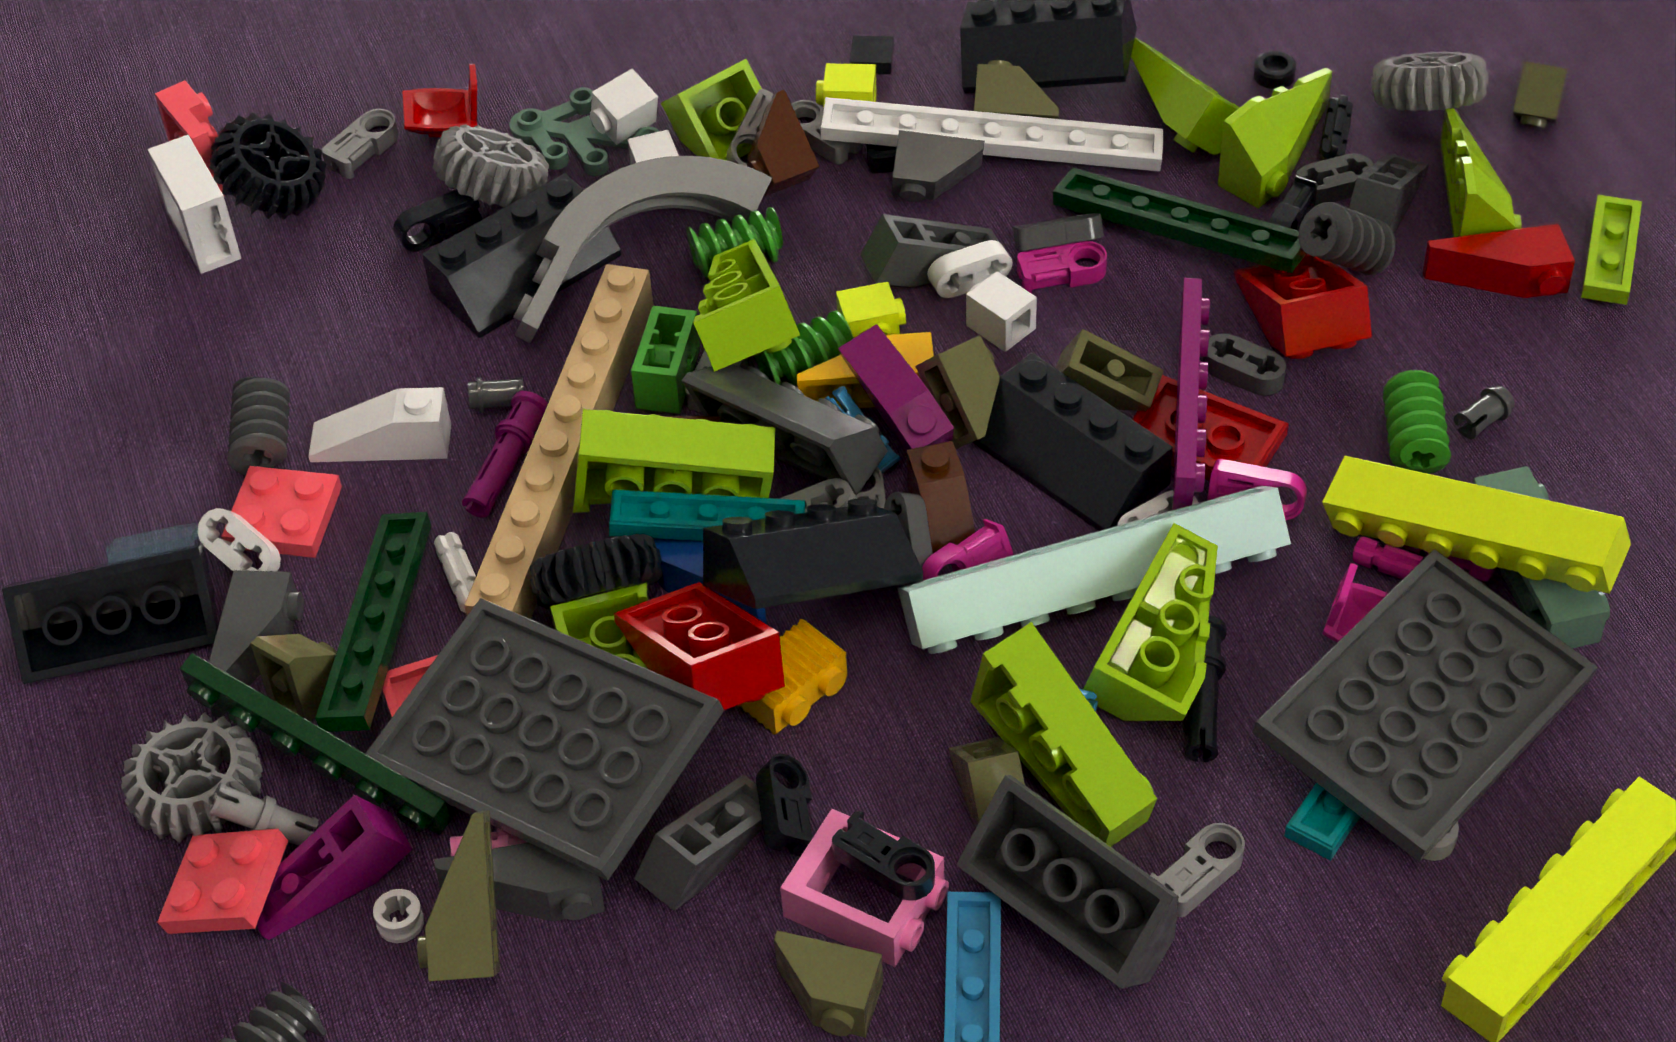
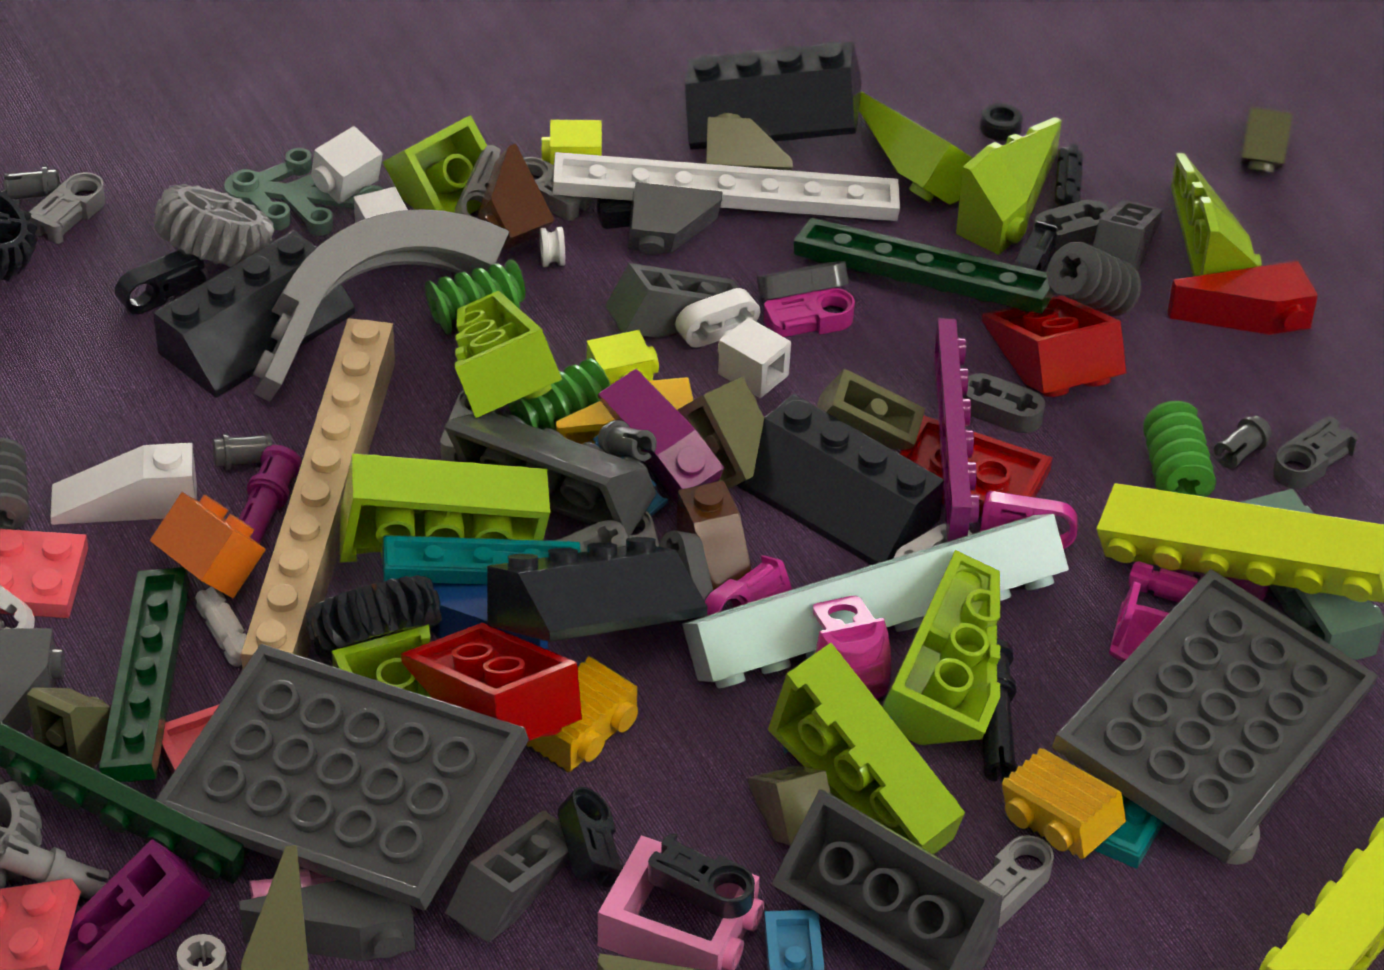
camera: 10 degrees left, 5 degrees down
(328, 119) = (31, 183): none -> dark grey pin
(438, 109) = (151, 172): red piece -> none
(448, 490) = (208, 544): none -> orange brick
(664, 358) = (418, 408): bright green brick -> none
(816, 192) = (552, 246): none -> white bush
(854, 397) = (621, 440): none -> dark grey pin
(873, 50) = (594, 108): black tile -> none
(1066, 622) = (861, 643): none -> dark pink piece
(1258, 792) = (1062, 803): none -> yellow brick
(1430, 81) = (1158, 128): light grey gear -> none
(1559, 423) = (1316, 449): none -> dark grey piece
(1611, 249) = (1350, 286): lime plate -> none

